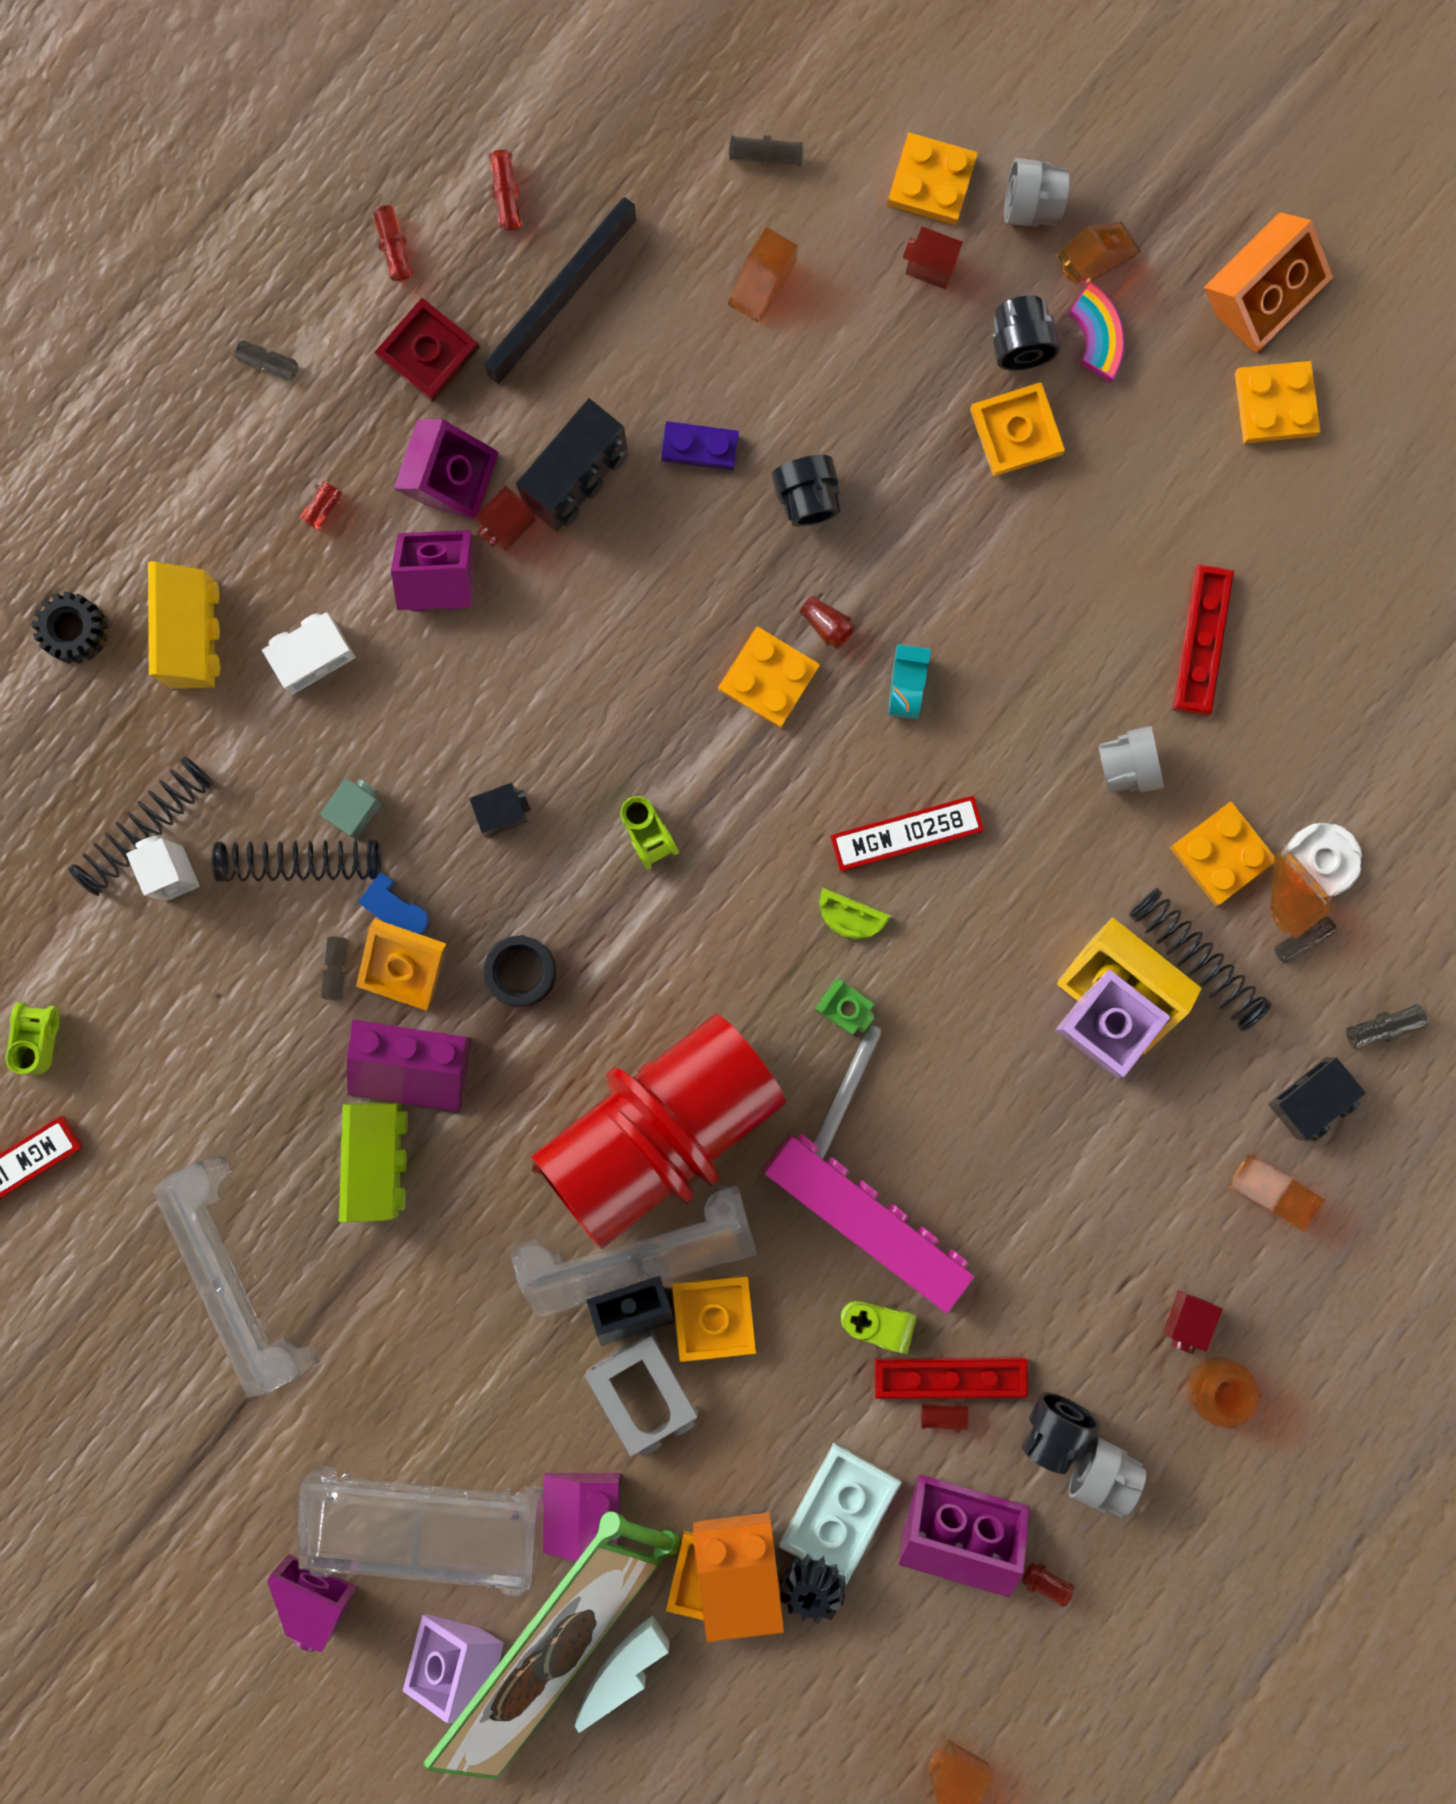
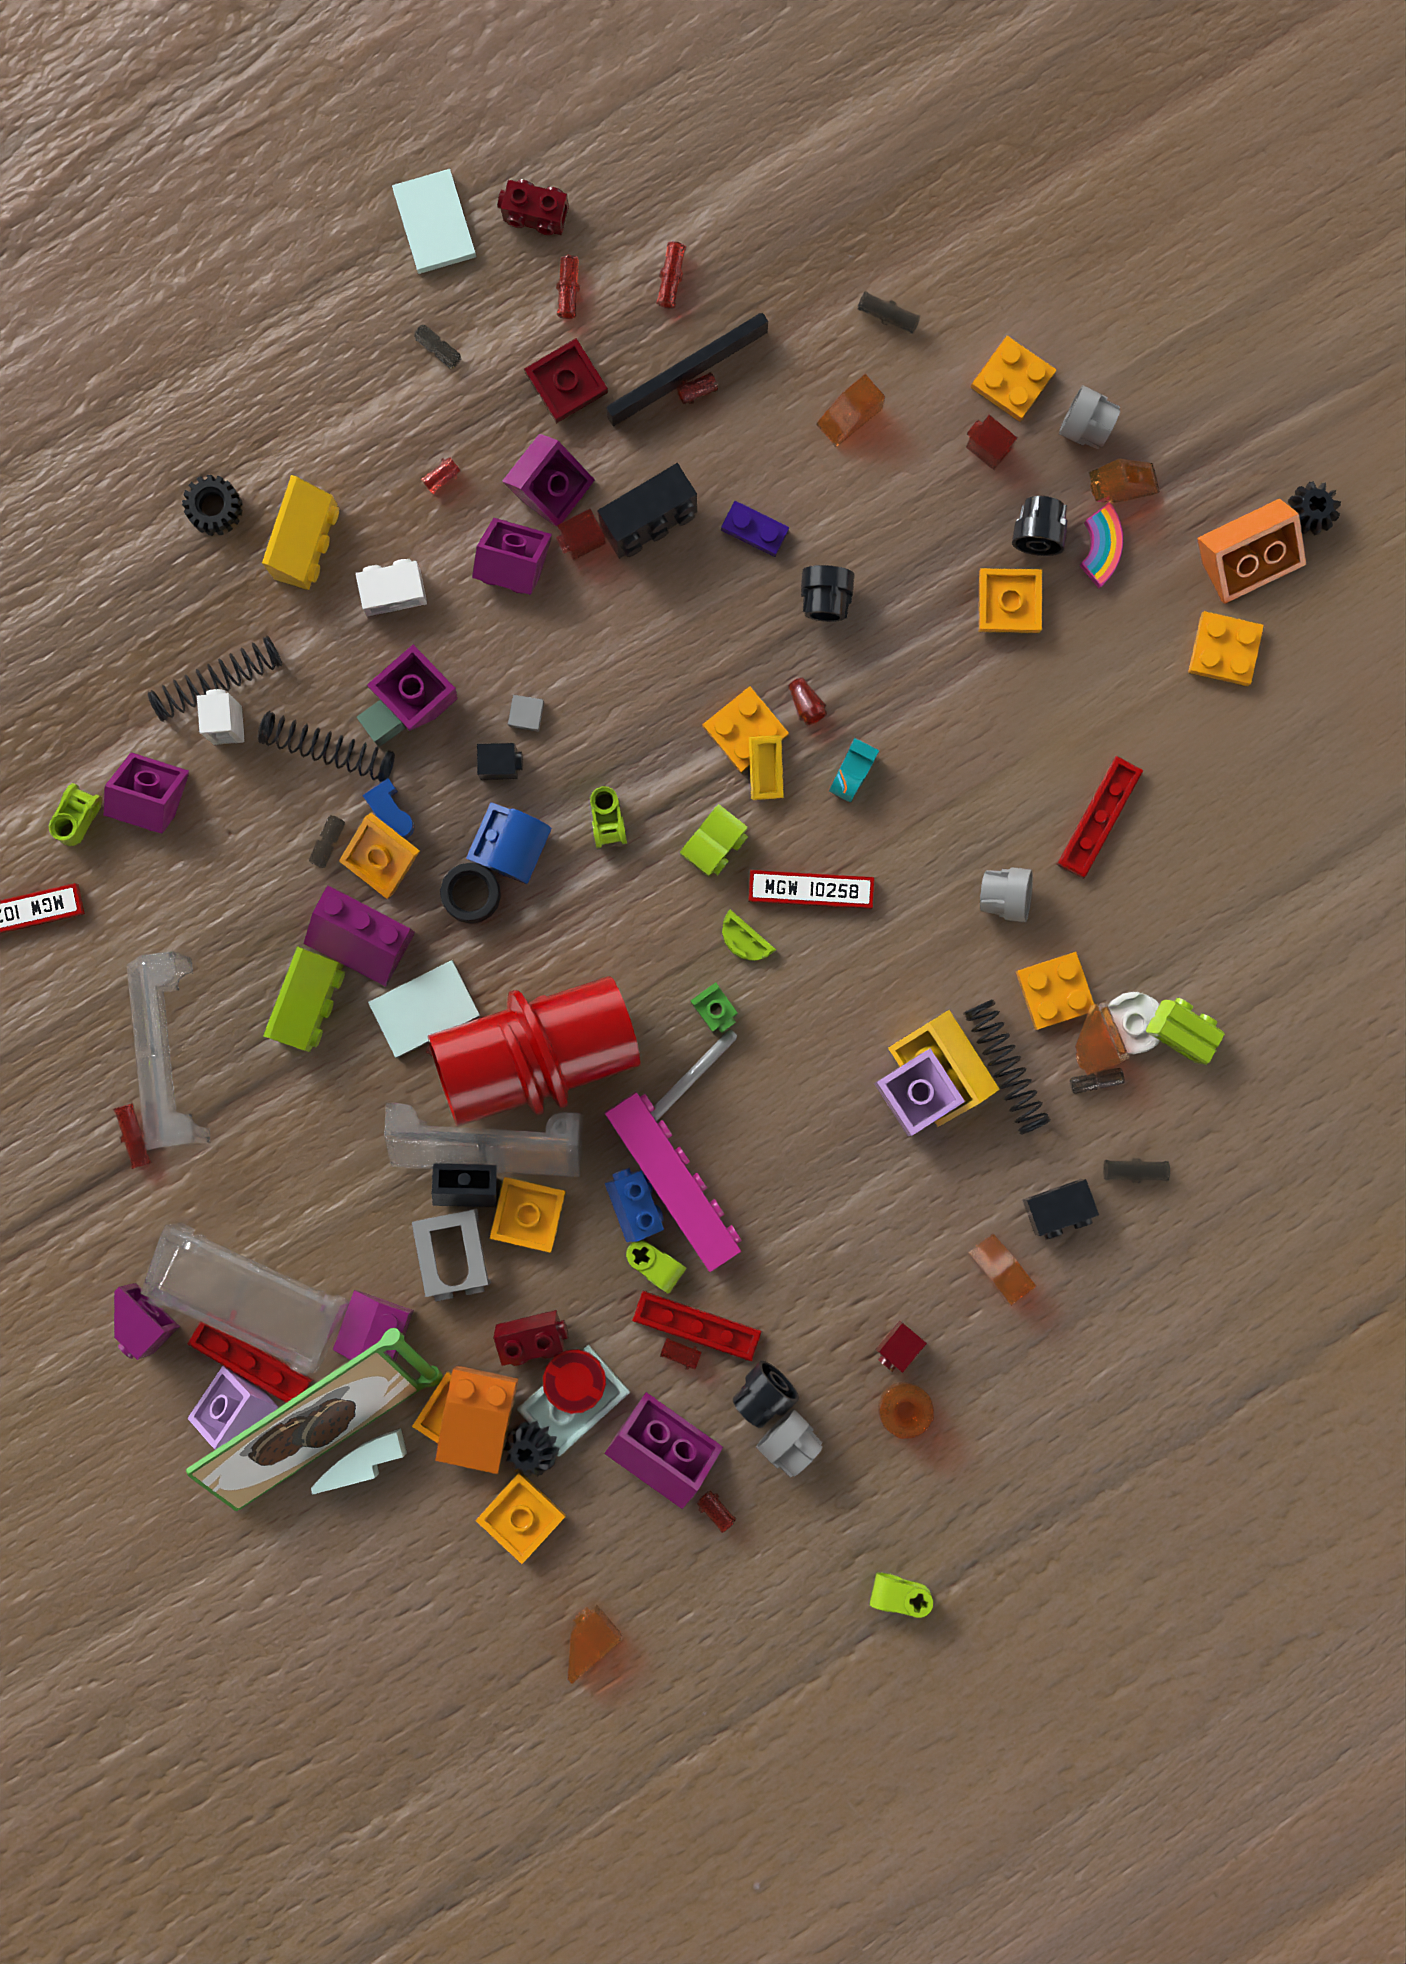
camera: 20 degrees right, 0 degrees up
(104, 984) = (144, 792): none -> magenta slope
(213, 219) = (434, 221): none -> light aqua tile
(226, 1386) = (132, 1135): none -> clear red pin
(322, 165) = (534, 207): none -> dark red brick
(374, 760) = (413, 689): none -> magenta slope
(455, 1603) = (250, 1362): none -> red tile
(512, 743) = (526, 713): none -> light grey tile
(512, 1122) = (423, 1008): none -> light aqua tile
(544, 898) = (509, 842): none -> blue brick
(578, 309) = (696, 388): none -> clear red pin
(766, 1461) = (530, 1338): none -> dark red brick
(778, 816) = (714, 841): none -> lime brick
(808, 712) = (766, 767): none -> yellow tile
(827, 1671) = (520, 1517): none -> light orange plate
(833, 1265) = (634, 1205): none -> blue brick
(834, 1492) = (574, 1381): none -> red tile
(1285, 1608) = (894, 1594): none -> lime piece
(1328, 200) = (1322, 500): none -> black gear
(1388, 849) = (1185, 1031): none -> lime brick

